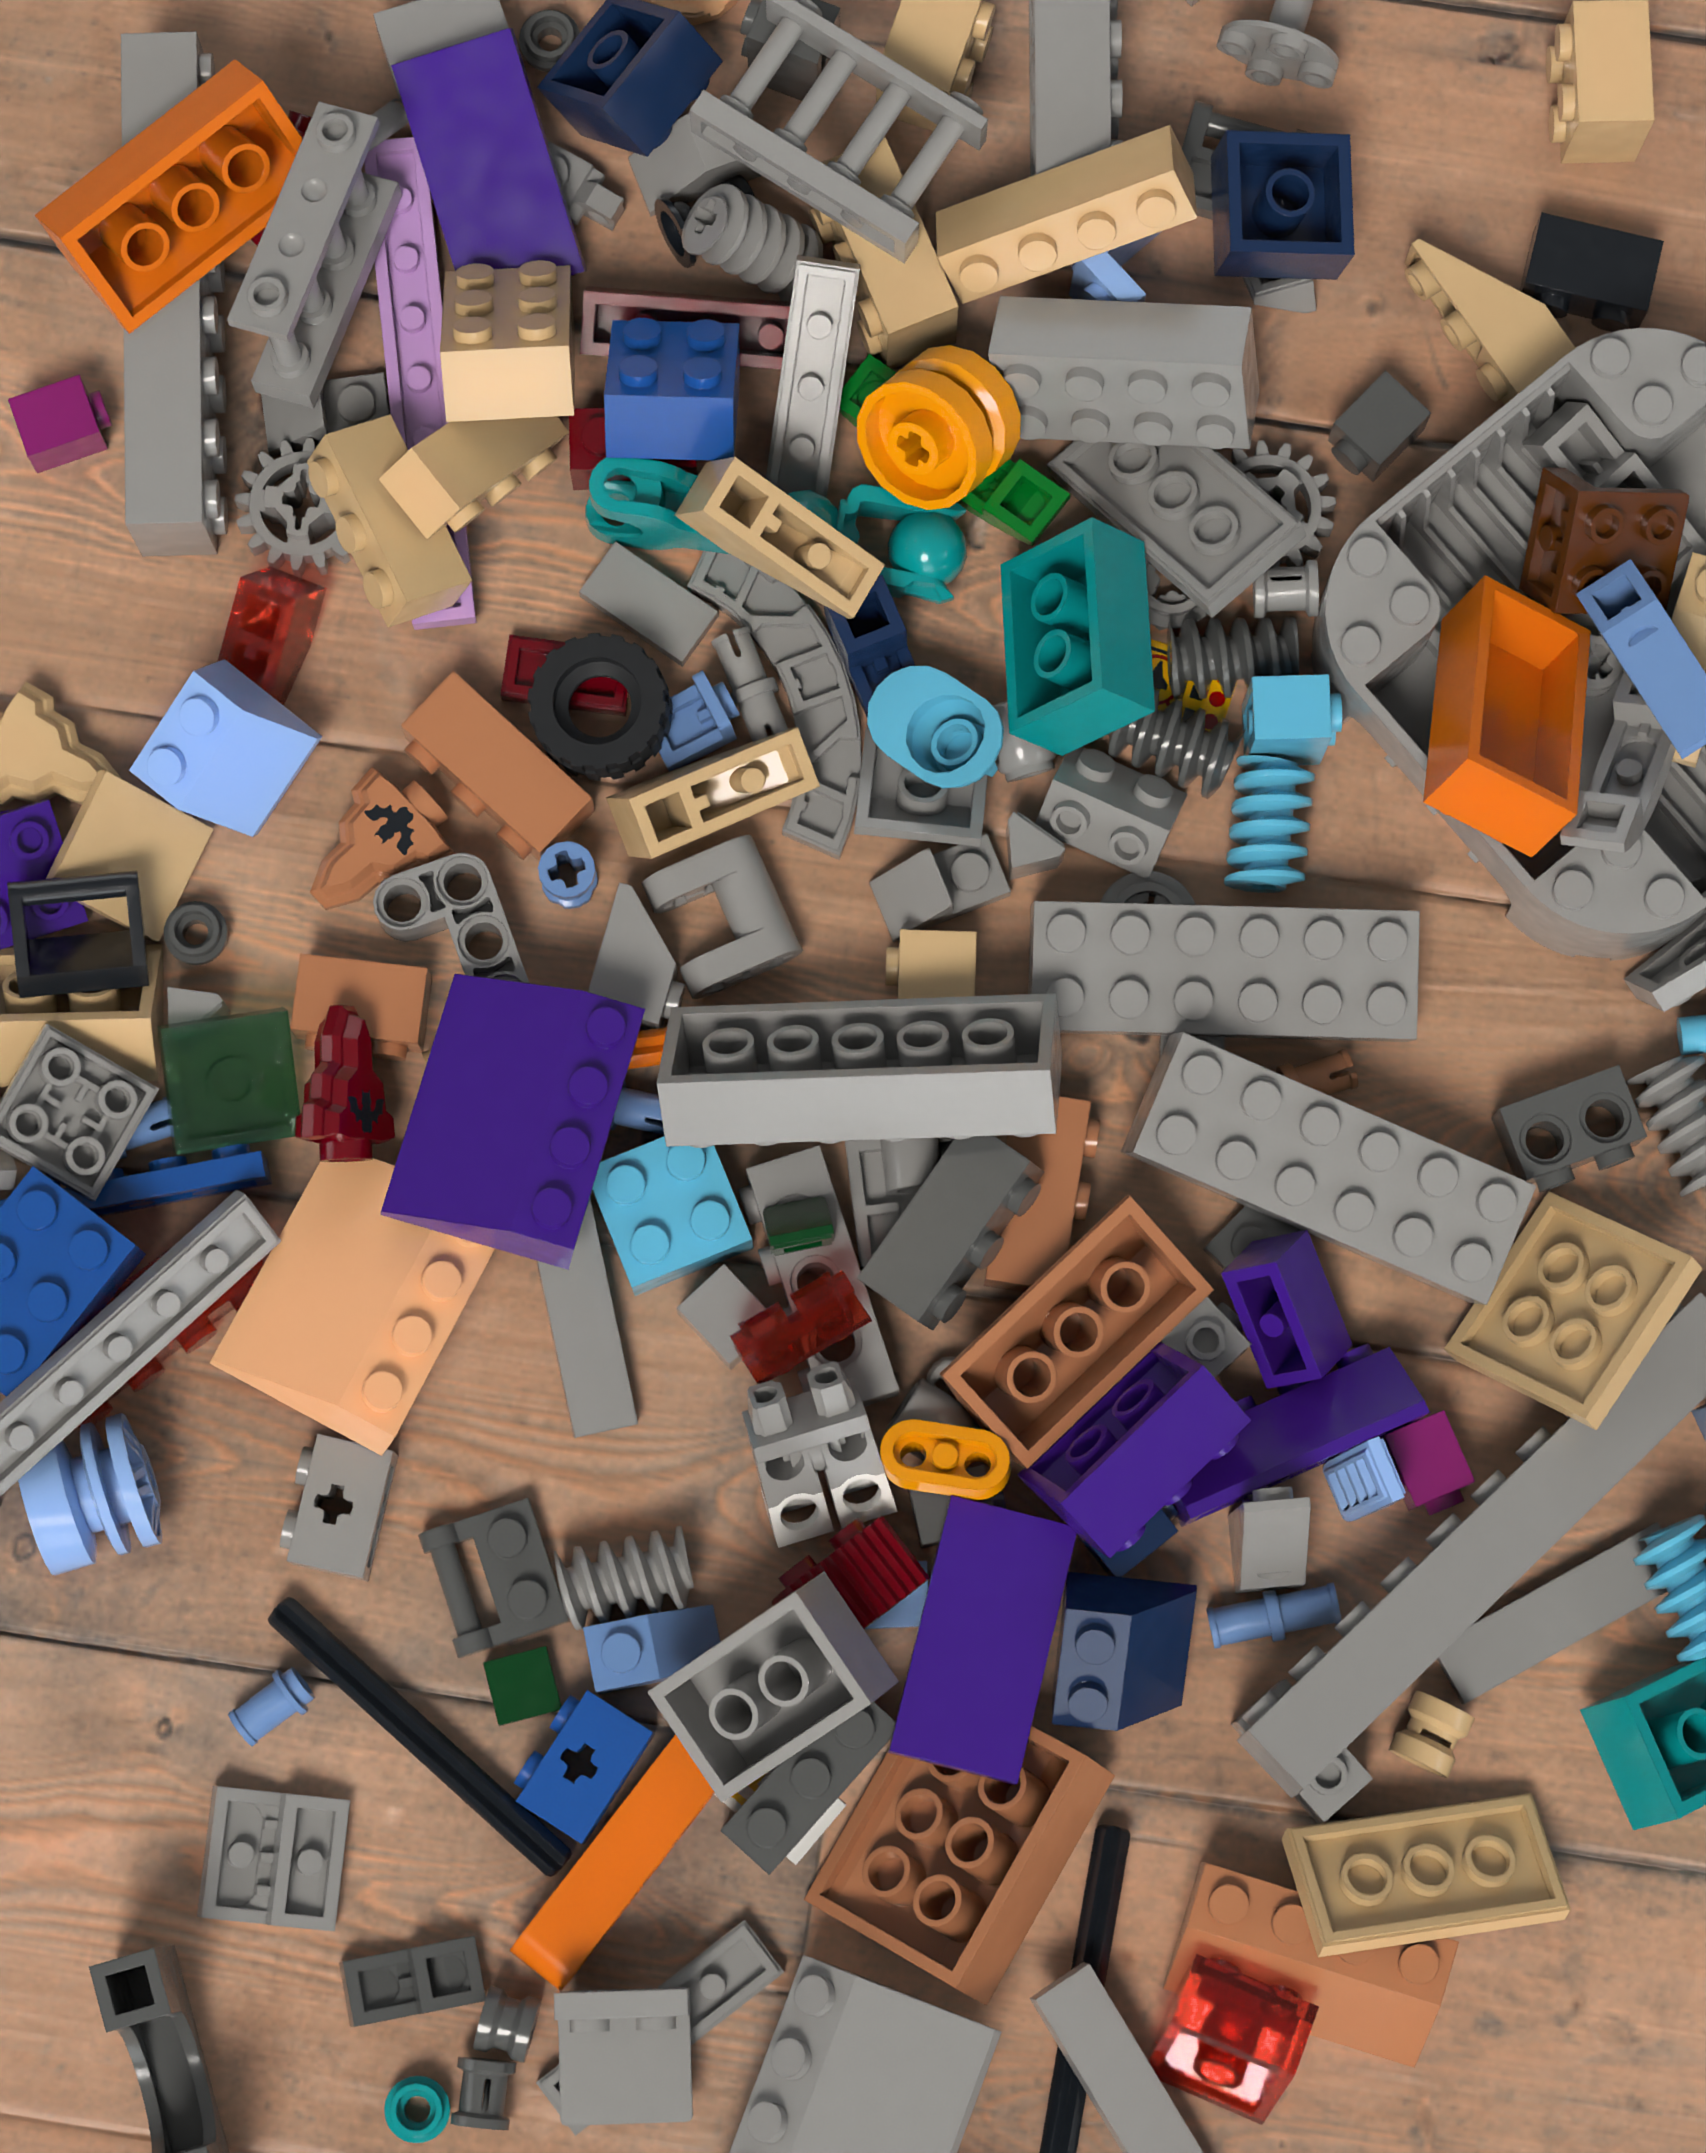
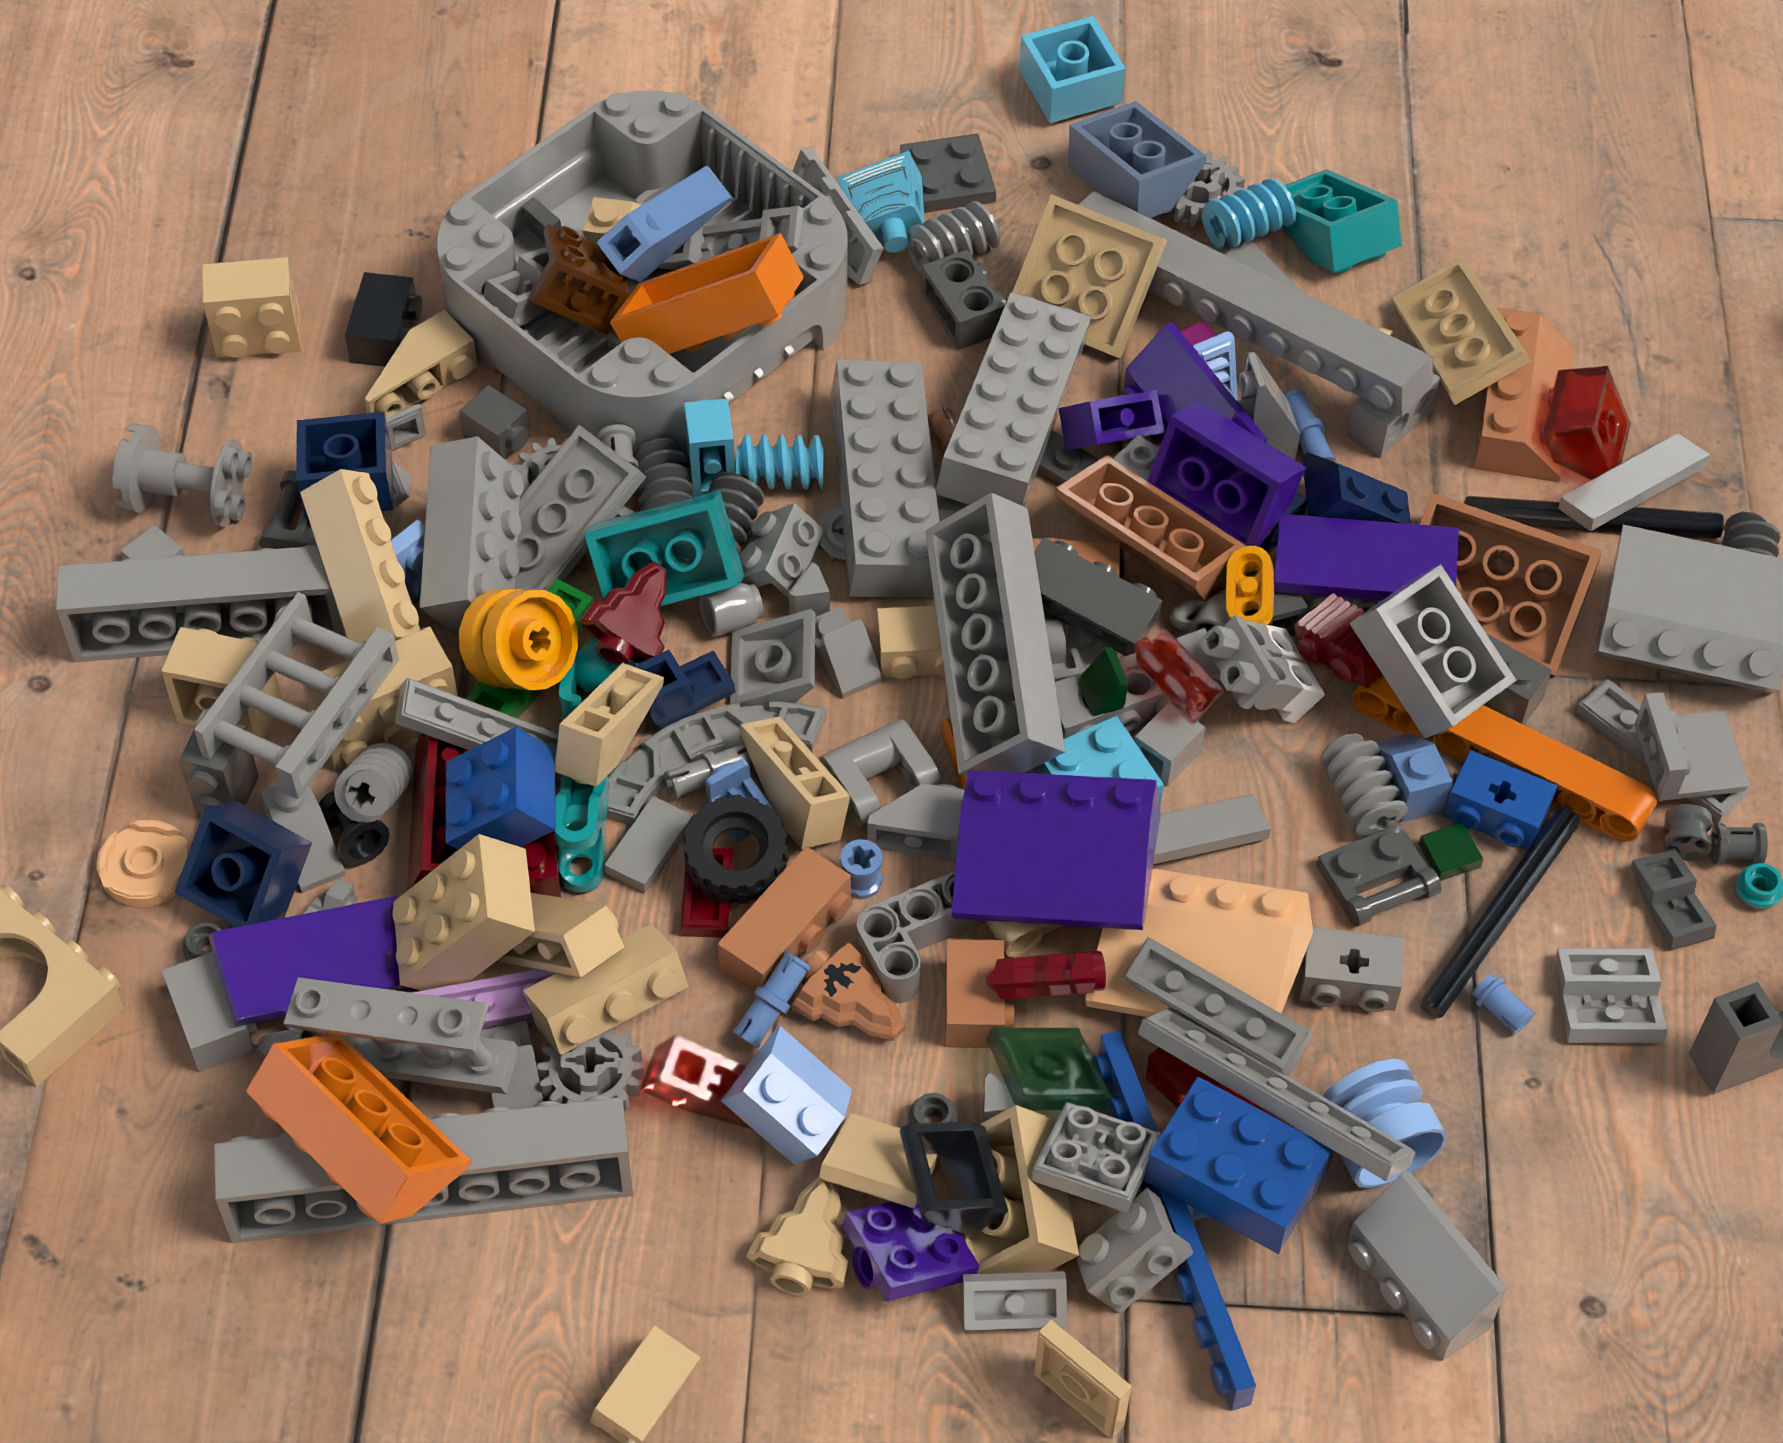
camera: 95 degrees left, 25 degrees down
(60, 423) = (531, 1253): magenta brick -> none
(259, 1297) = (1218, 1006): none -> light grey tile
(376, 739) = (772, 999): none -> medium blue pin
(935, 727) = (735, 635): medium azure piece -> none
(958, 580) = (629, 618): none -> dark red rock
(1384, 292) = (406, 426): none -> light grey slope

